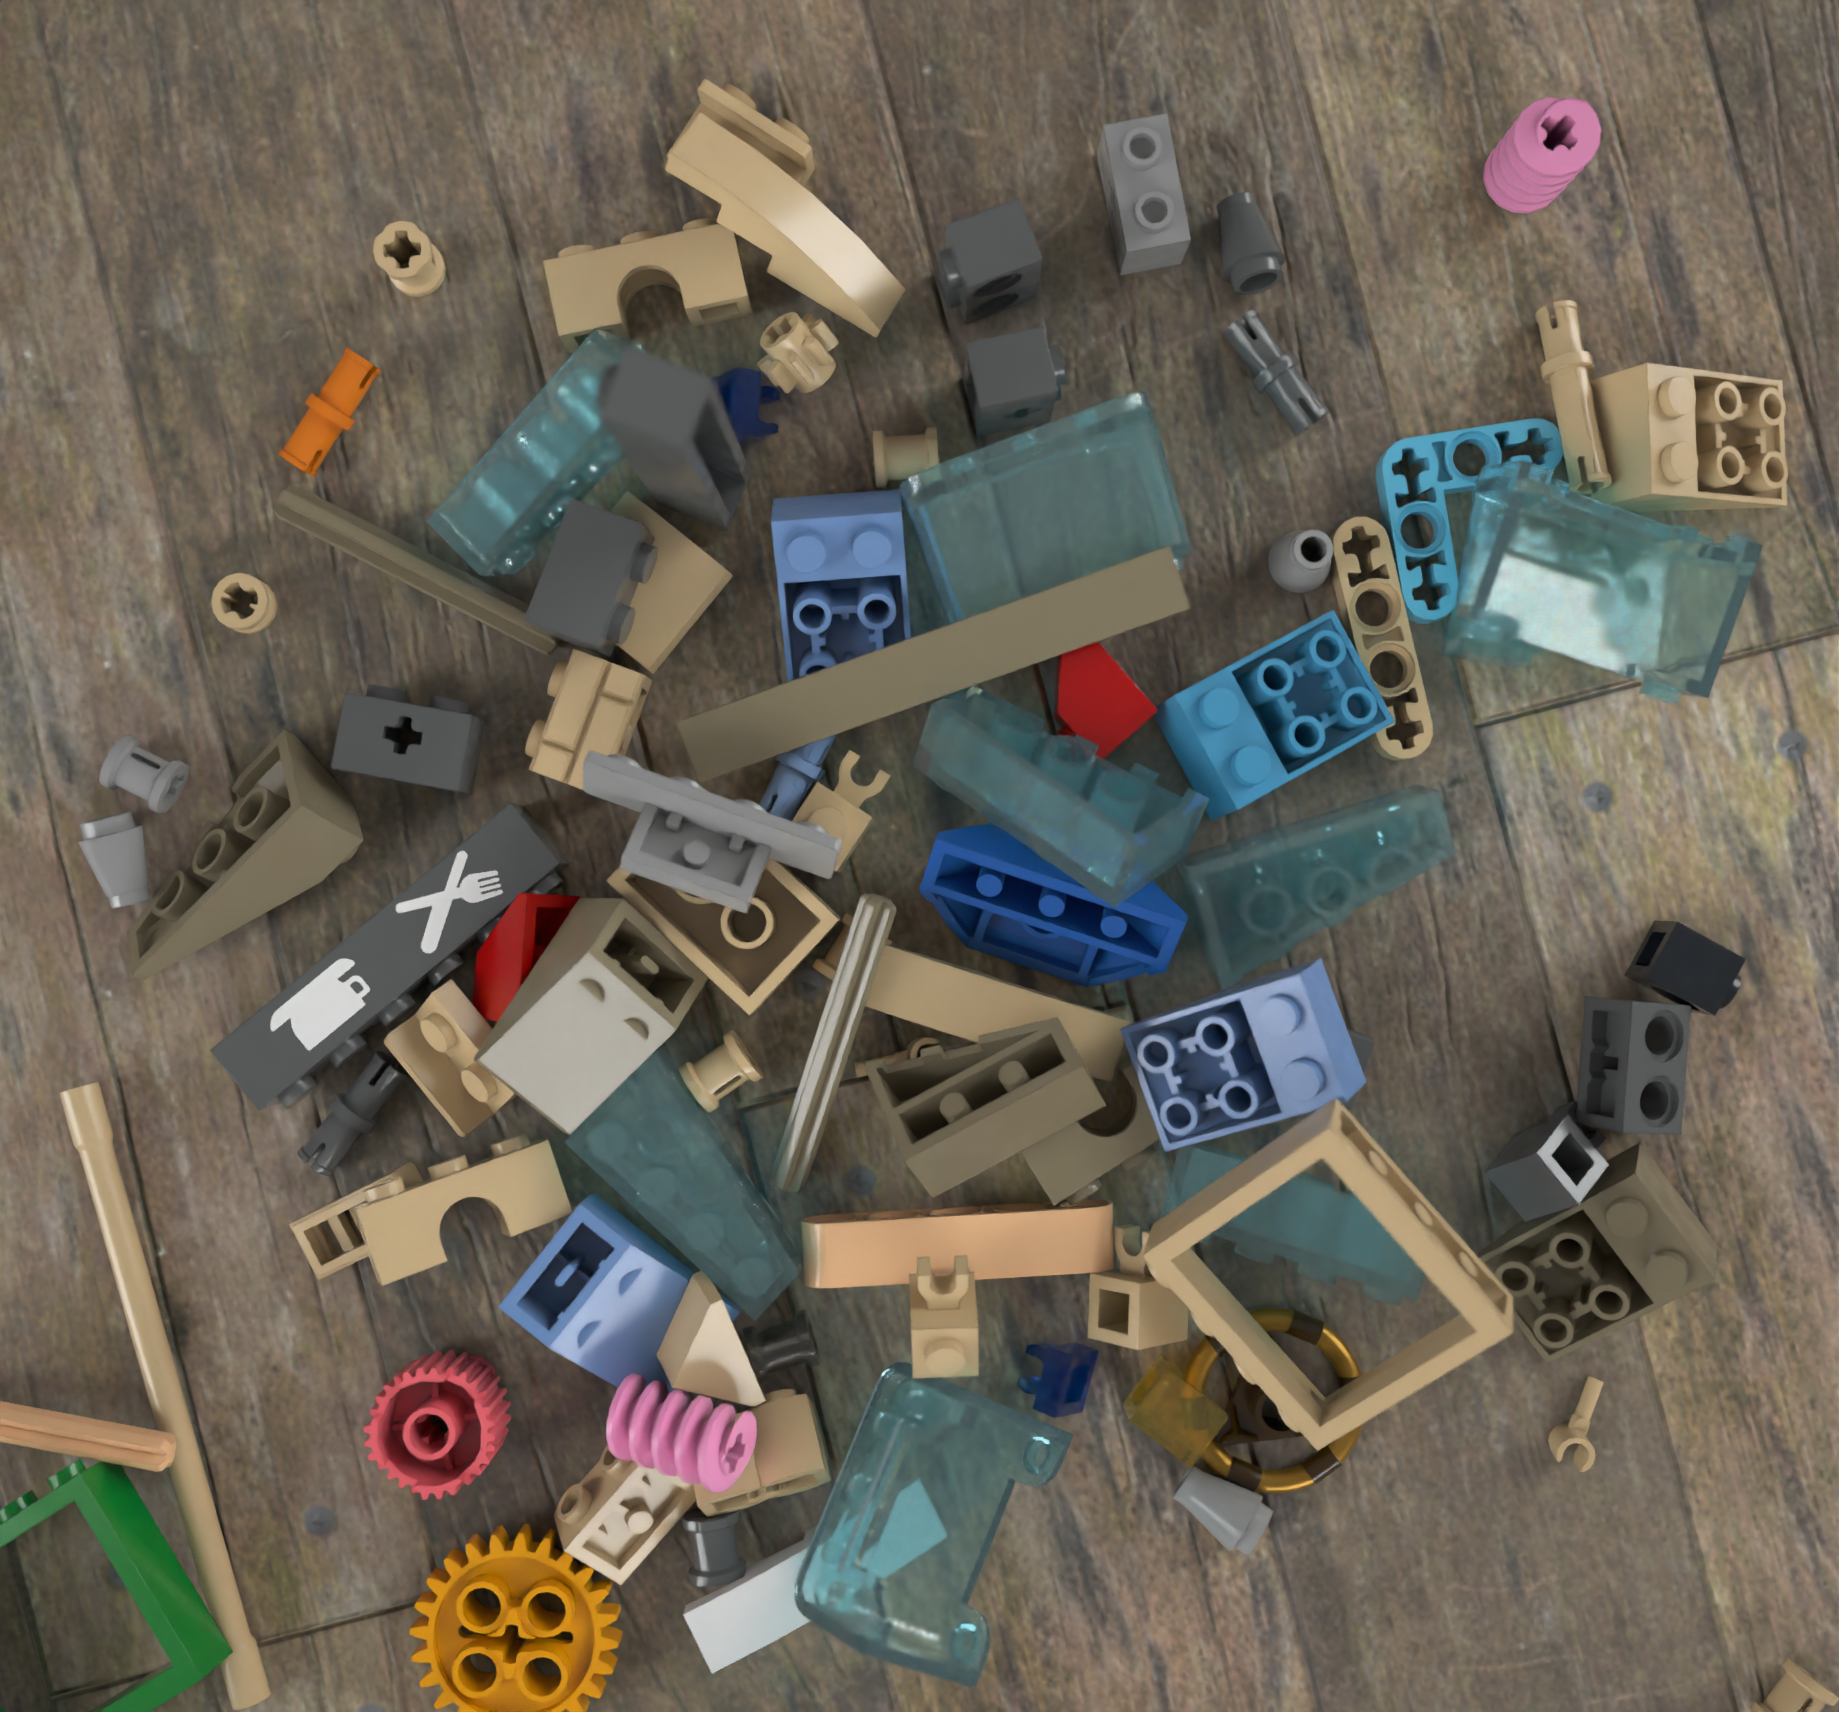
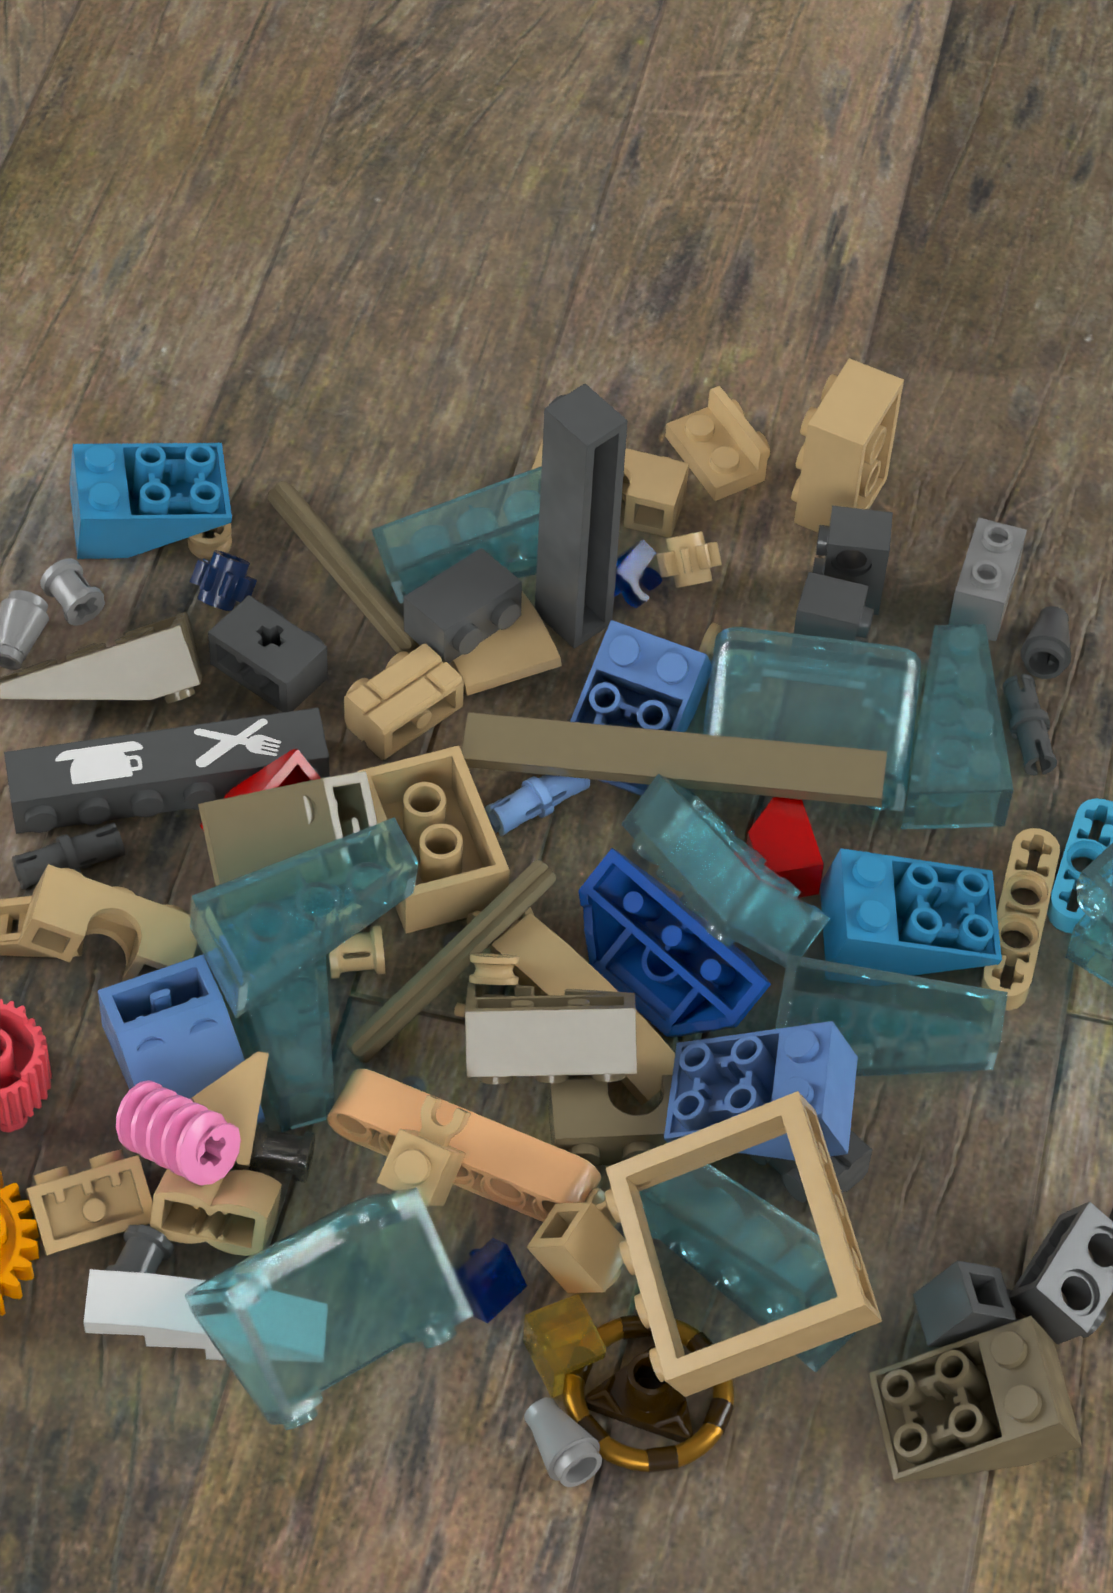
camera: 20 degrees right, 35 degrees down
(143, 602) = (145, 495): none -> dark azure slope
(301, 672) = (223, 580): none -> dark blue gear
(329, 412) = (344, 457): orange pin -> none
(395, 248) = (455, 408): tan bush -> none
(439, 1054) = (170, 849): tan bracket -> none
(648, 1148) = (298, 910): none -> clear light blue wedge
(702, 839) = (450, 761): light grey bracket -> none
(780, 216) = (732, 495): tan slope -> none
(840, 809) = (543, 830): tan brick -> none
(893, 1056) = (494, 969): none -> tan bush
(909, 109) = (846, 443): none -> tan brick
(1219, 447) = (960, 746): none -> clear light blue wedge
(1291, 569) = (987, 834): light grey cone -> none
(1577, 1428) = (896, 1537): tan hand -> none

